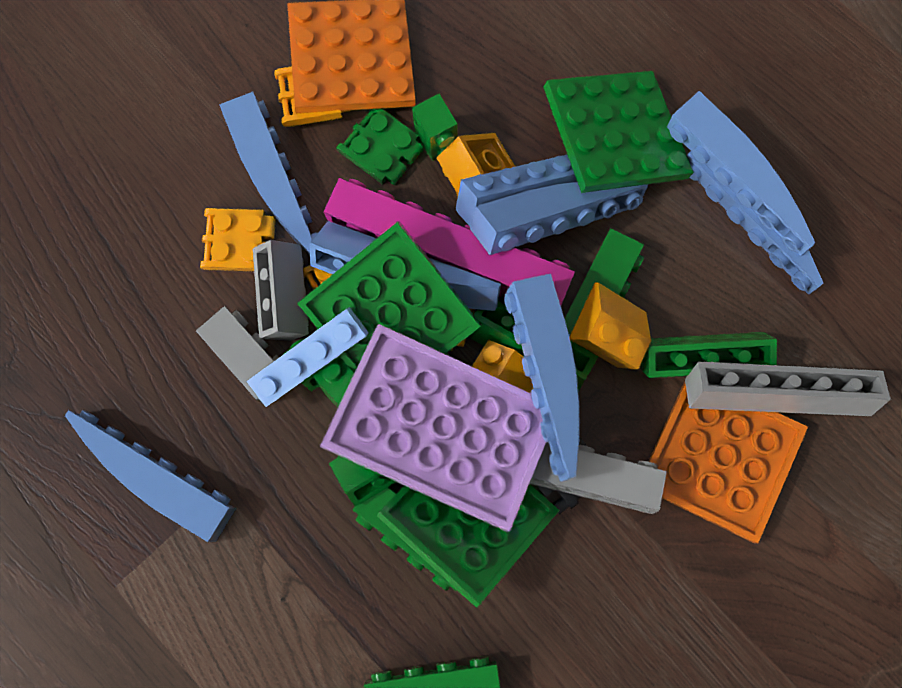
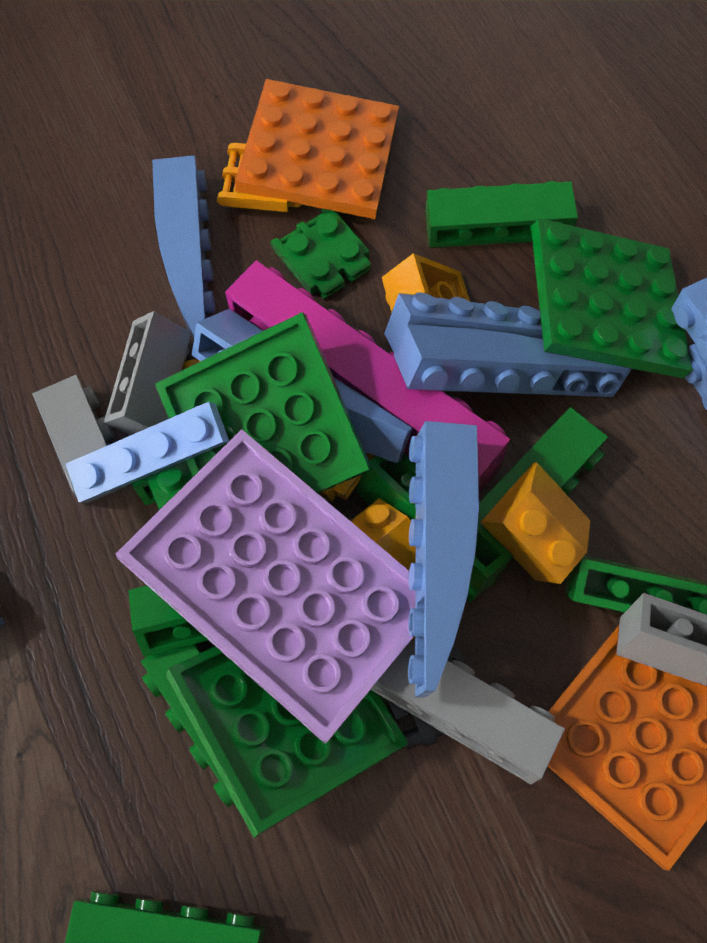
camera: 15 degrees right, 10 degrees down
(235, 237) = (114, 306): light orange plate -> none
(434, 125) = (388, 236): green brick -> none
(512, 75) = (495, 212): none -> green brick

